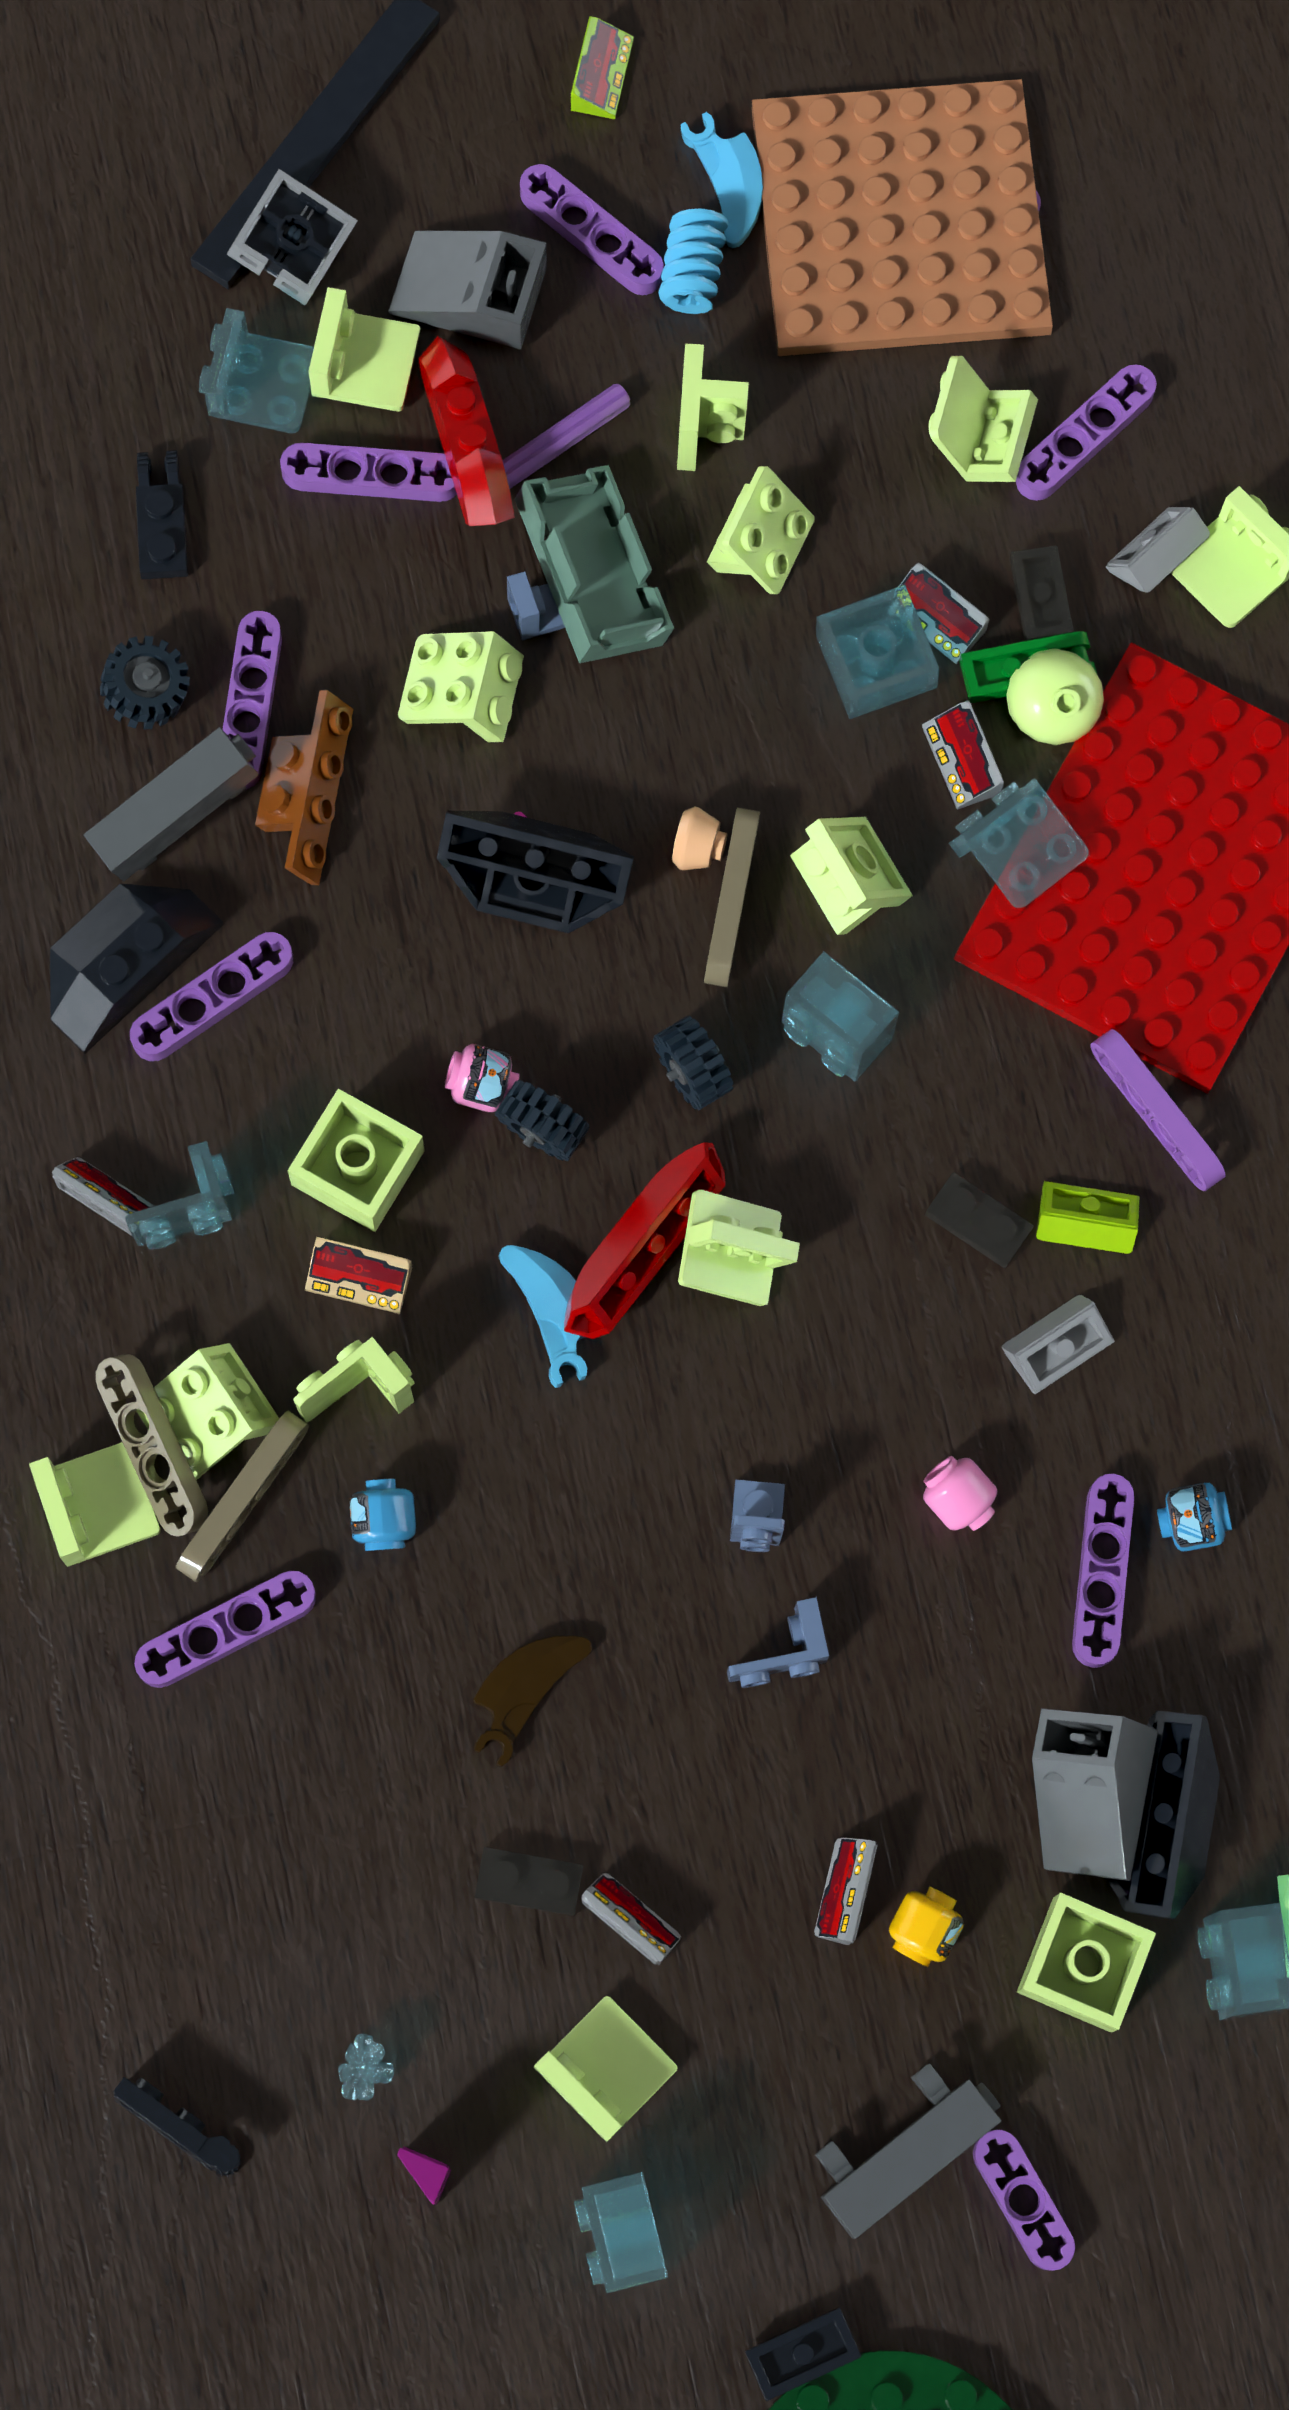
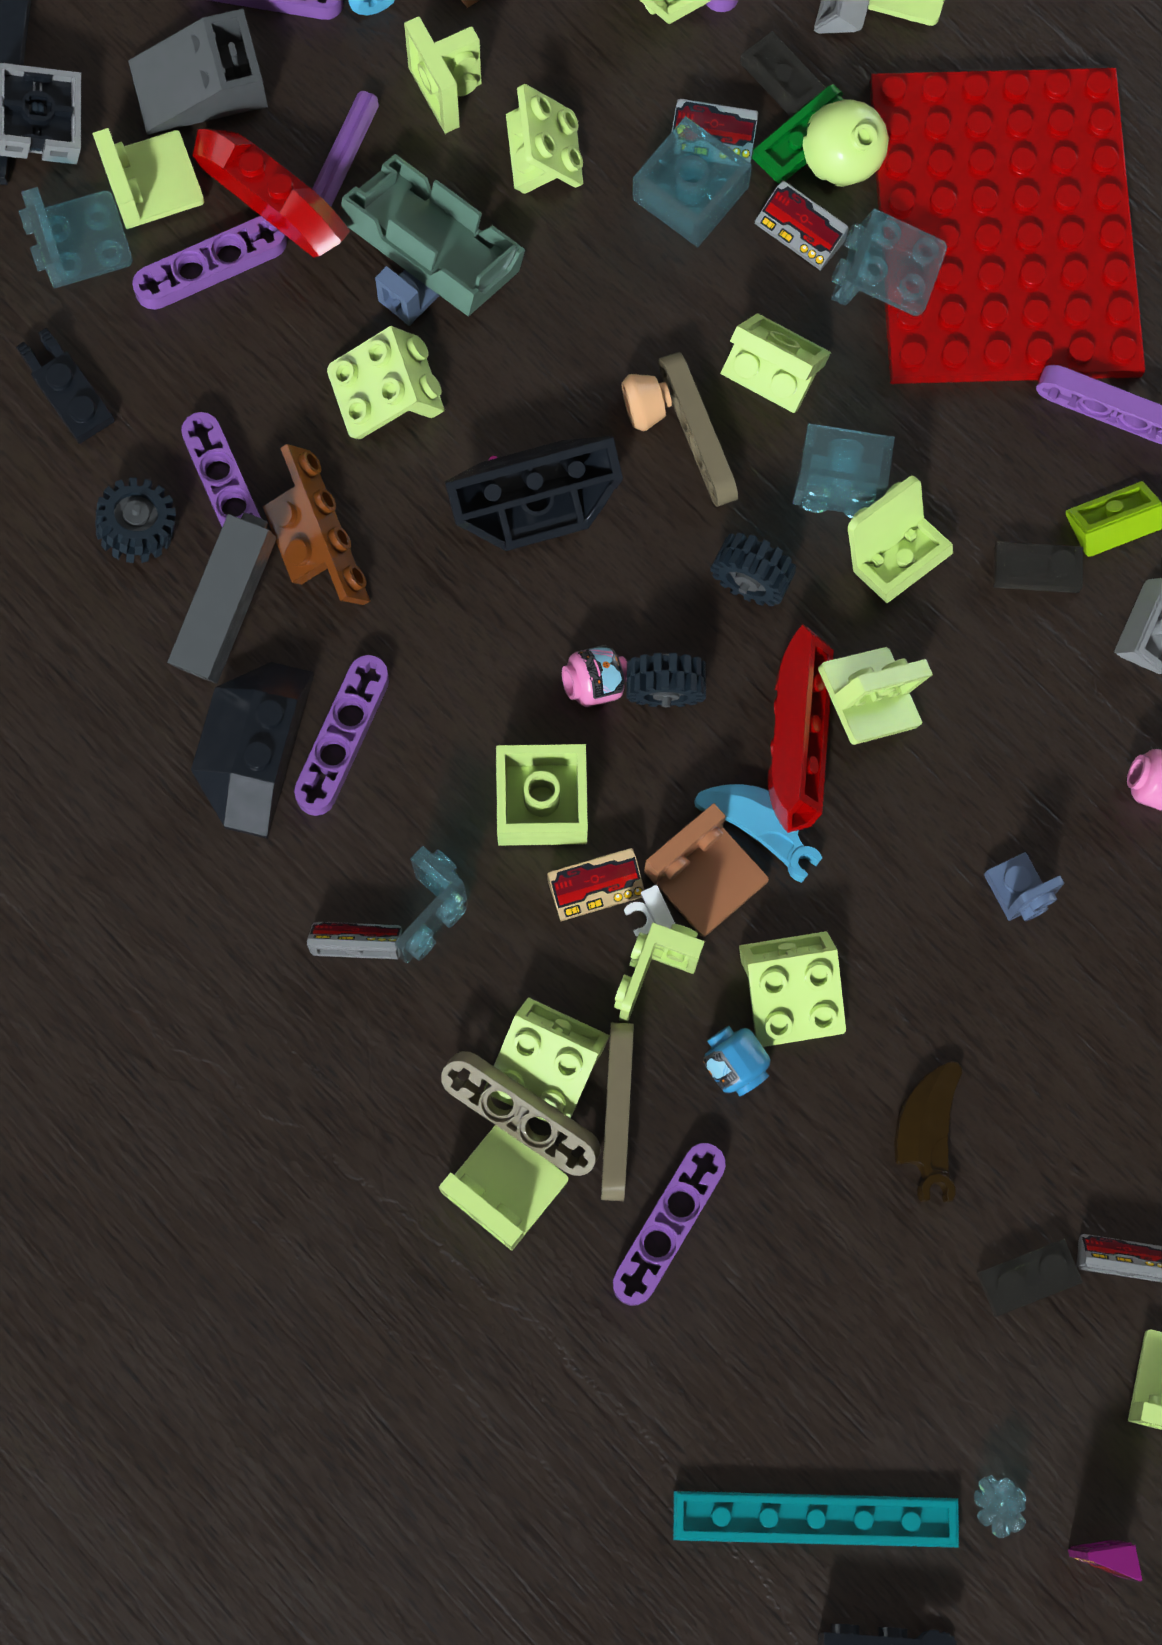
camera: 30 degrees left, 0 degrees up
(188, 1977) = (815, 1519): none -> teal tile
(395, 1331) = (654, 909): none -> white tile
(466, 1322) = (705, 872): none -> nougat bracket
(479, 1481) = (794, 988): none -> yellowish green bracket
(805, 1630) = (1117, 954): sand blue bracket -> none
(848, 1113) = (894, 541): none -> yellowish green bracket

